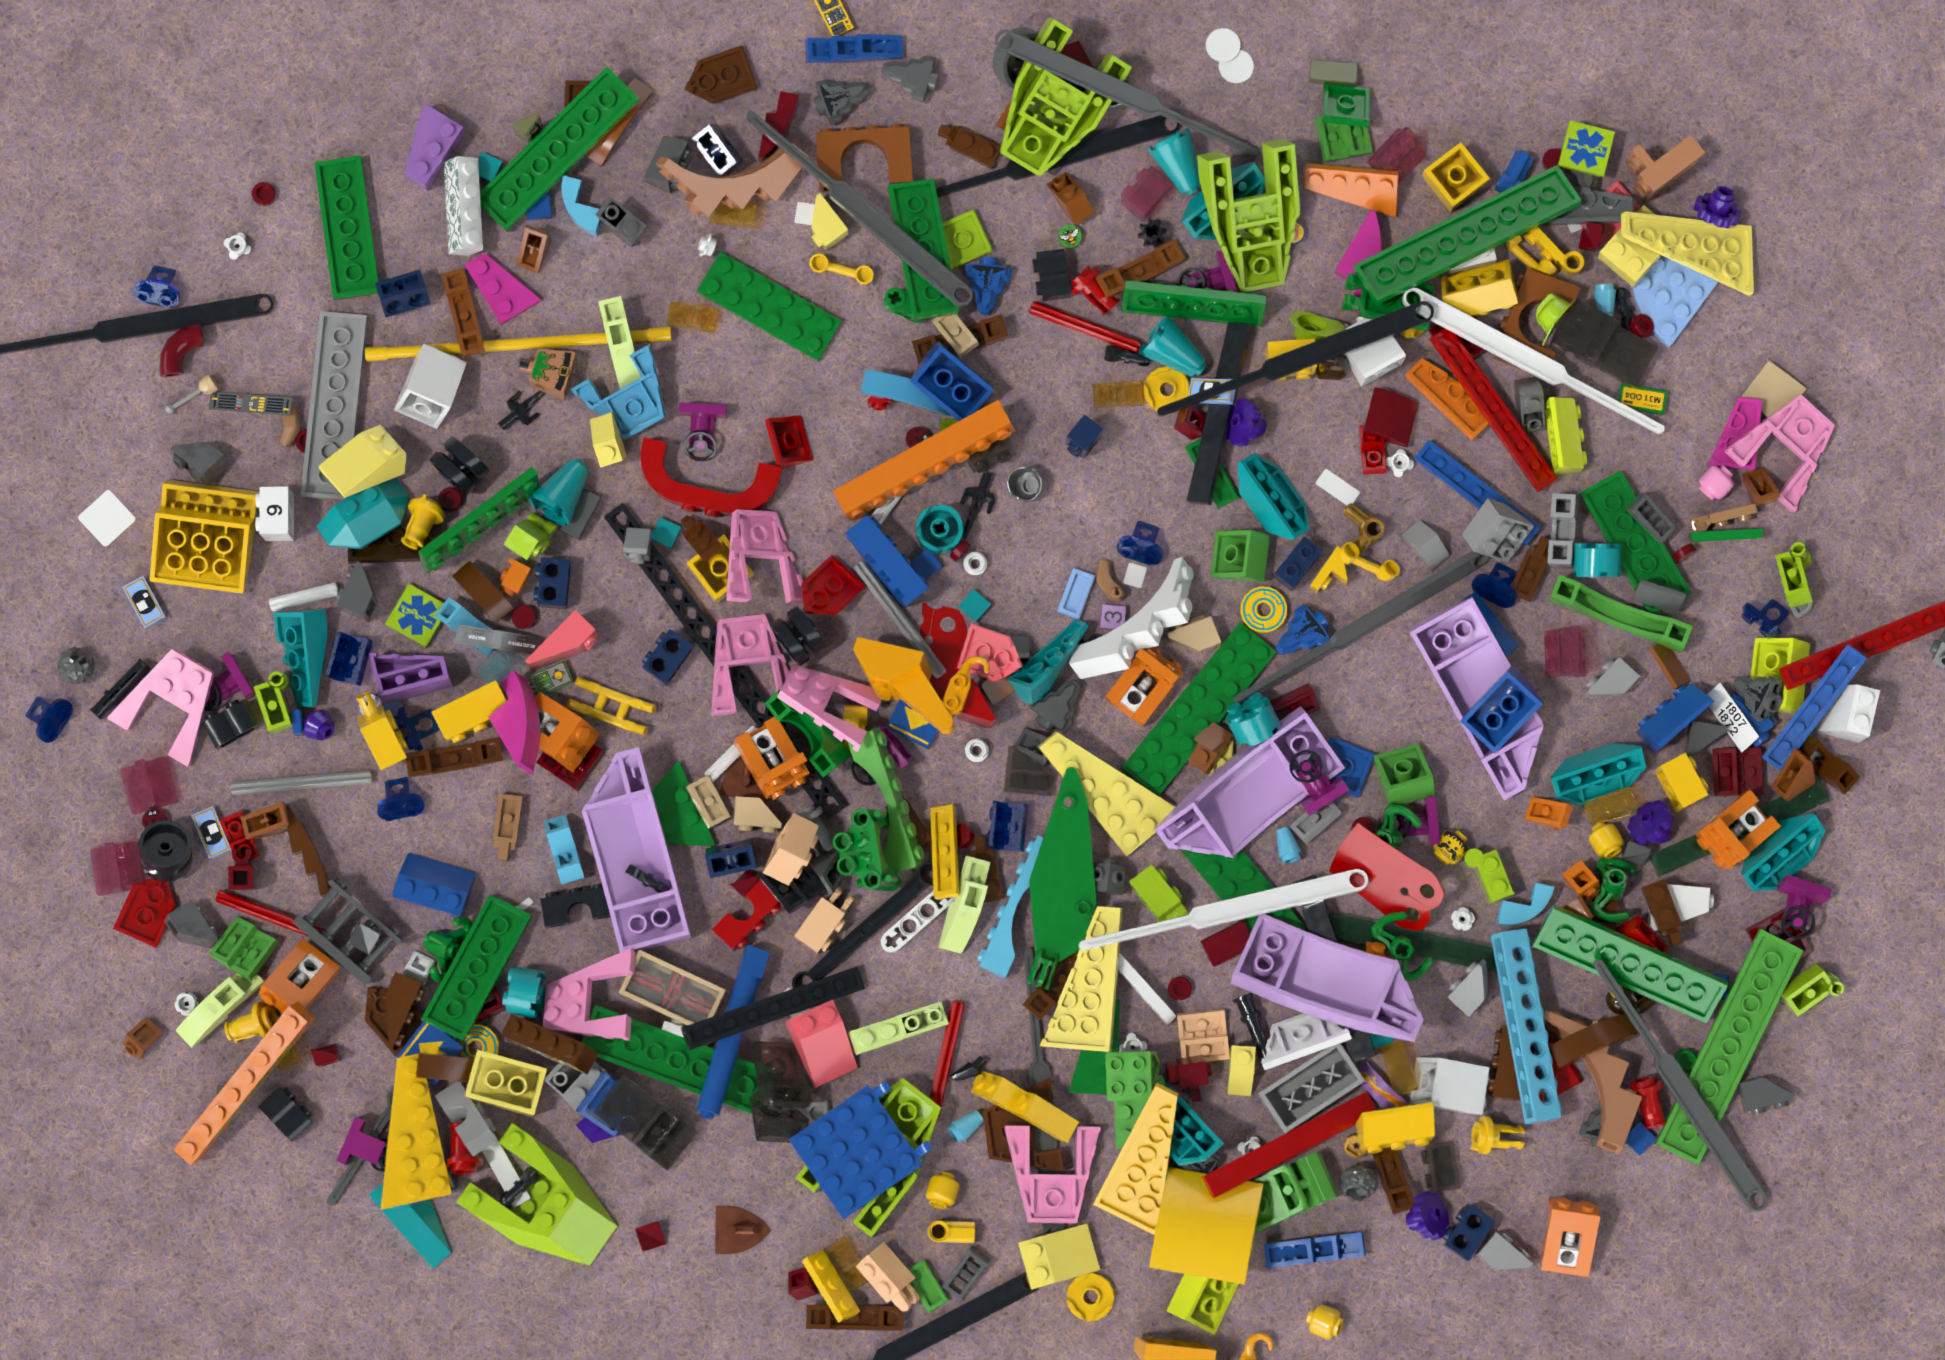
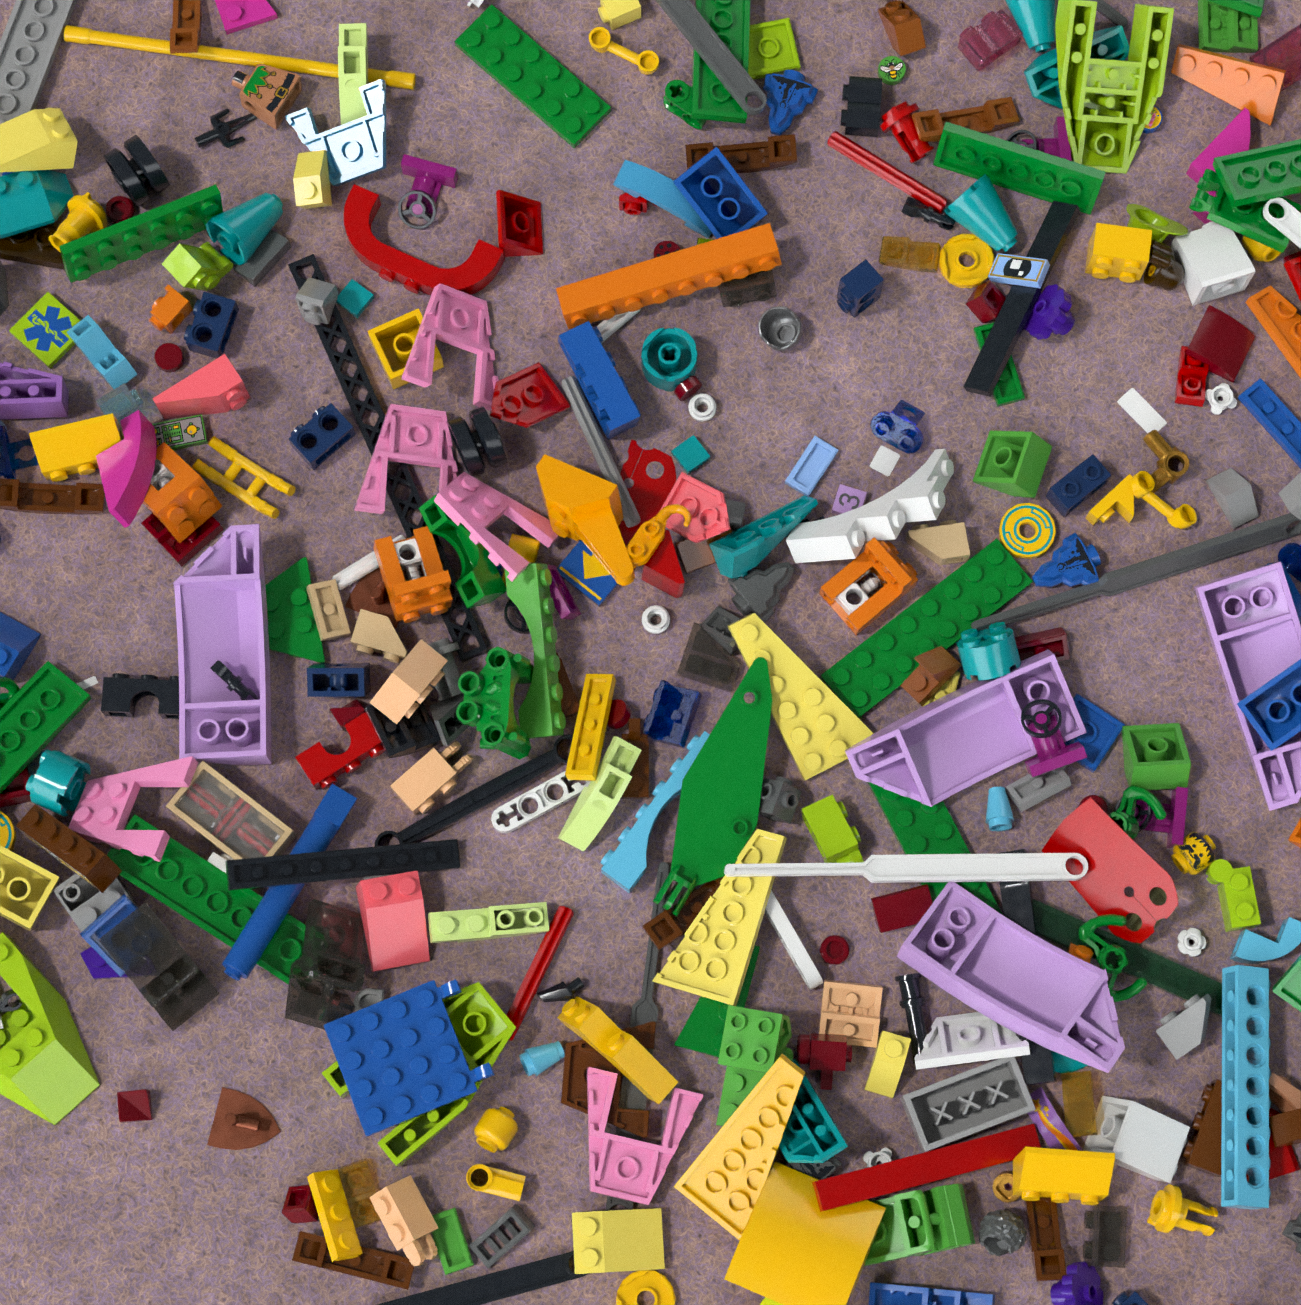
camera: 15 degrees right, 5 degrees down
(430, 386) = (126, 79): white slope -> none
(482, 591) = (128, 317): reddish brown brick -> none
(497, 639) = (125, 370): flat silver sticker -> none
(507, 824) = (89, 586): medium nougat hinge -> none
(563, 849) = (148, 628): medium azure brick -> none
(692, 317) = (442, 70): clear yellow slope -> none
(700, 538) = (390, 308): reddish brown hinge -> none
(926, 564) = (645, 396): blue tile -> none
(955, 334) = (737, 145): tan plate -> none
(978, 496) = (723, 333): black piece -> none
(1105, 582) = (849, 462): medium nougat arm -> none
(1132, 1040) = (764, 999): white plate -> none
(1154, 239) = (985, 77): black gear -> none
(1272, 497) = (1063, 403): teal wedge -> none
(1314, 353) = (1147, 246): black piece -> none

